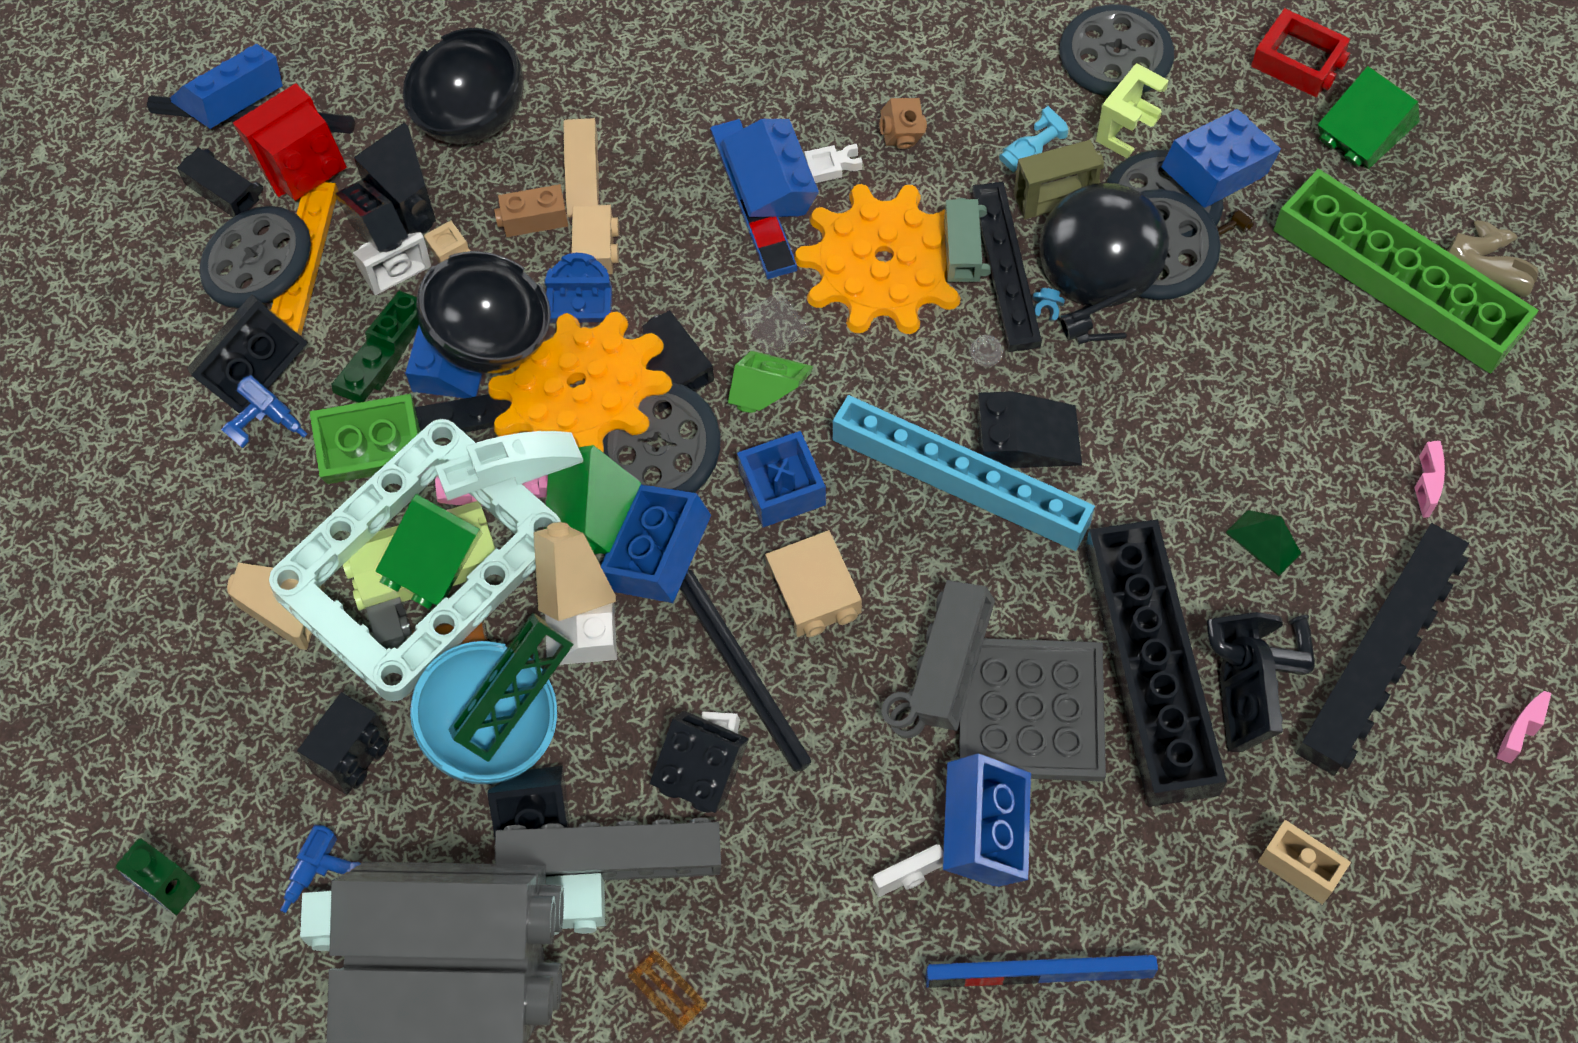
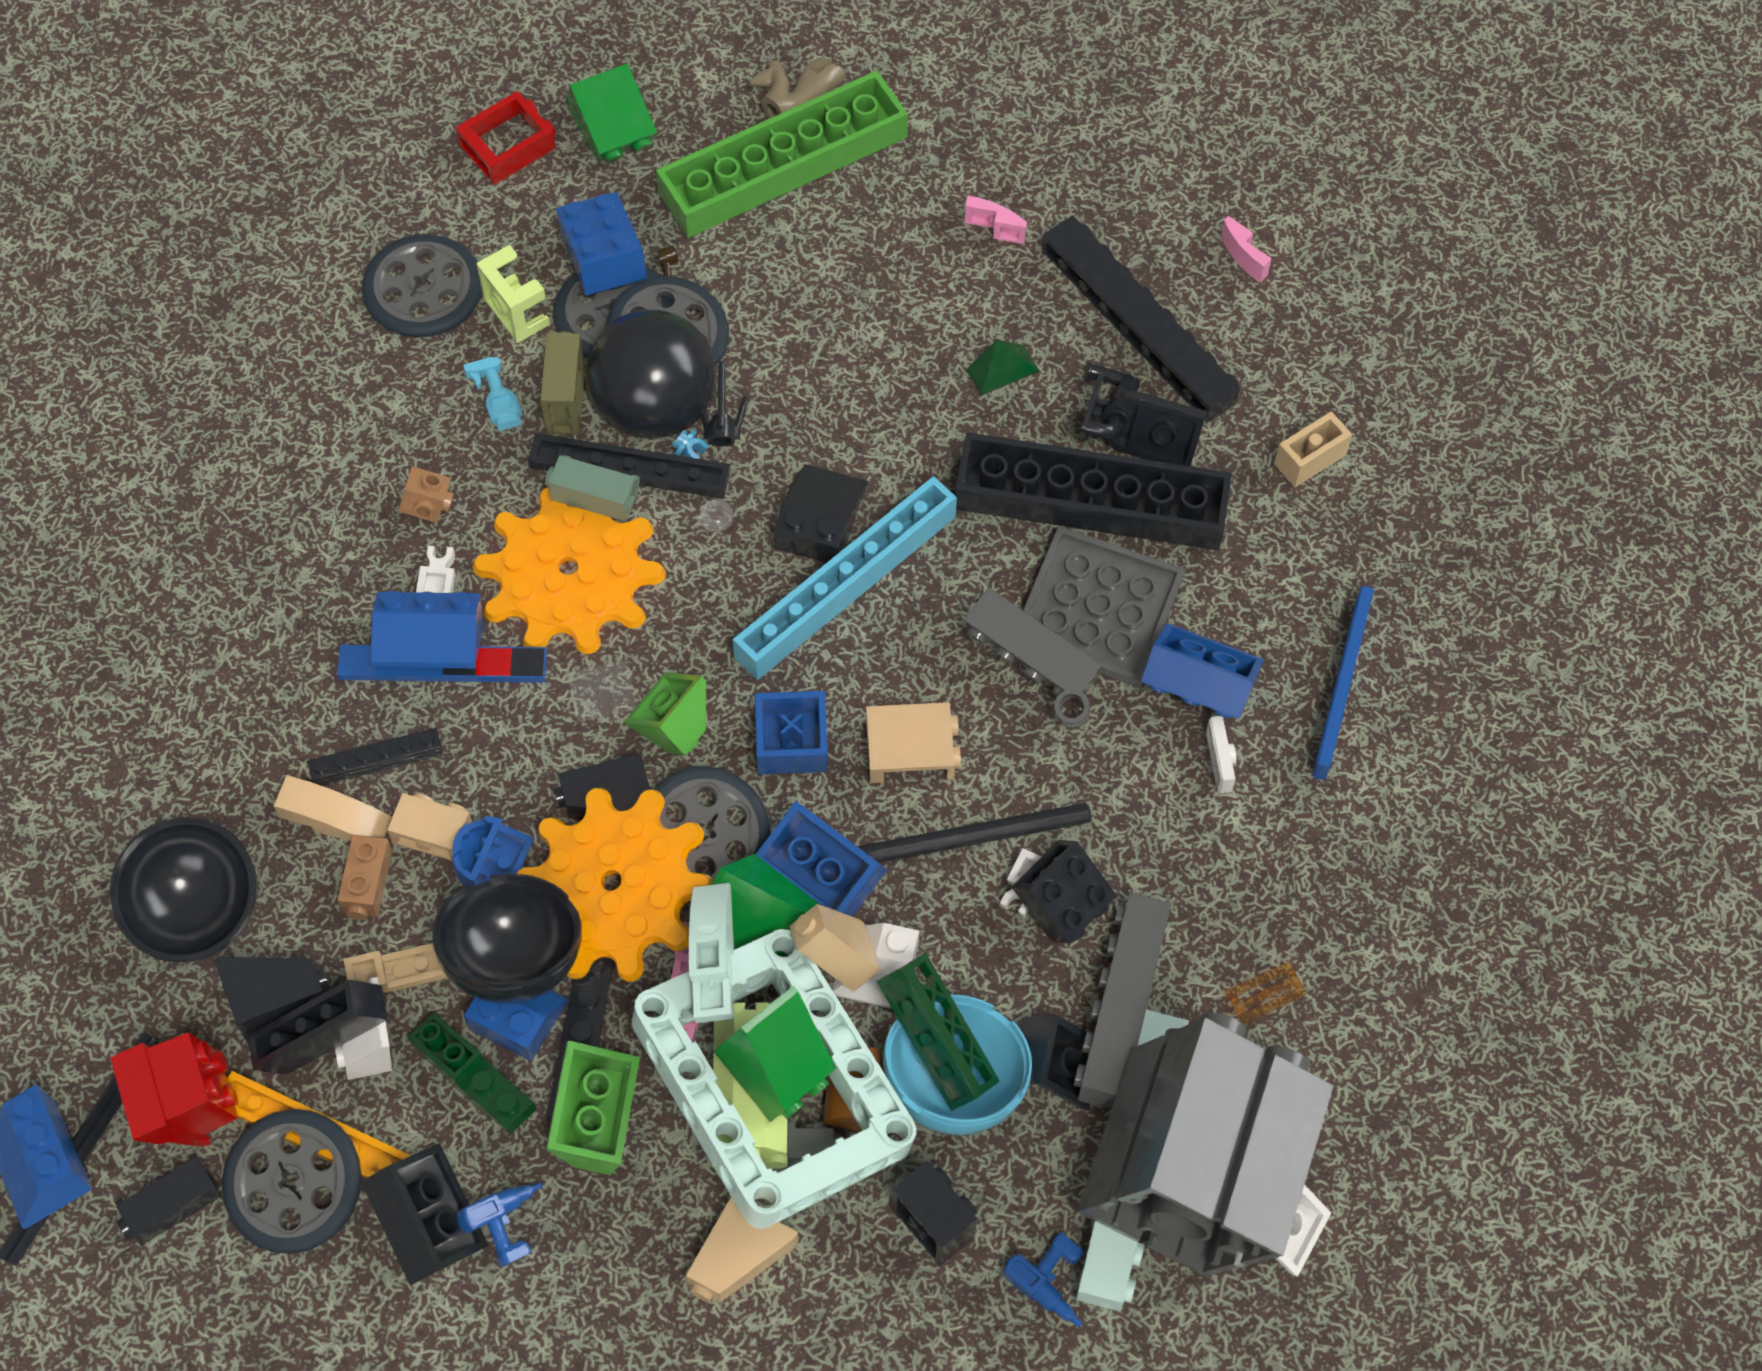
camera: 75 degrees left, 0 degrees up
(646, 181) = (375, 757): none -> black piece

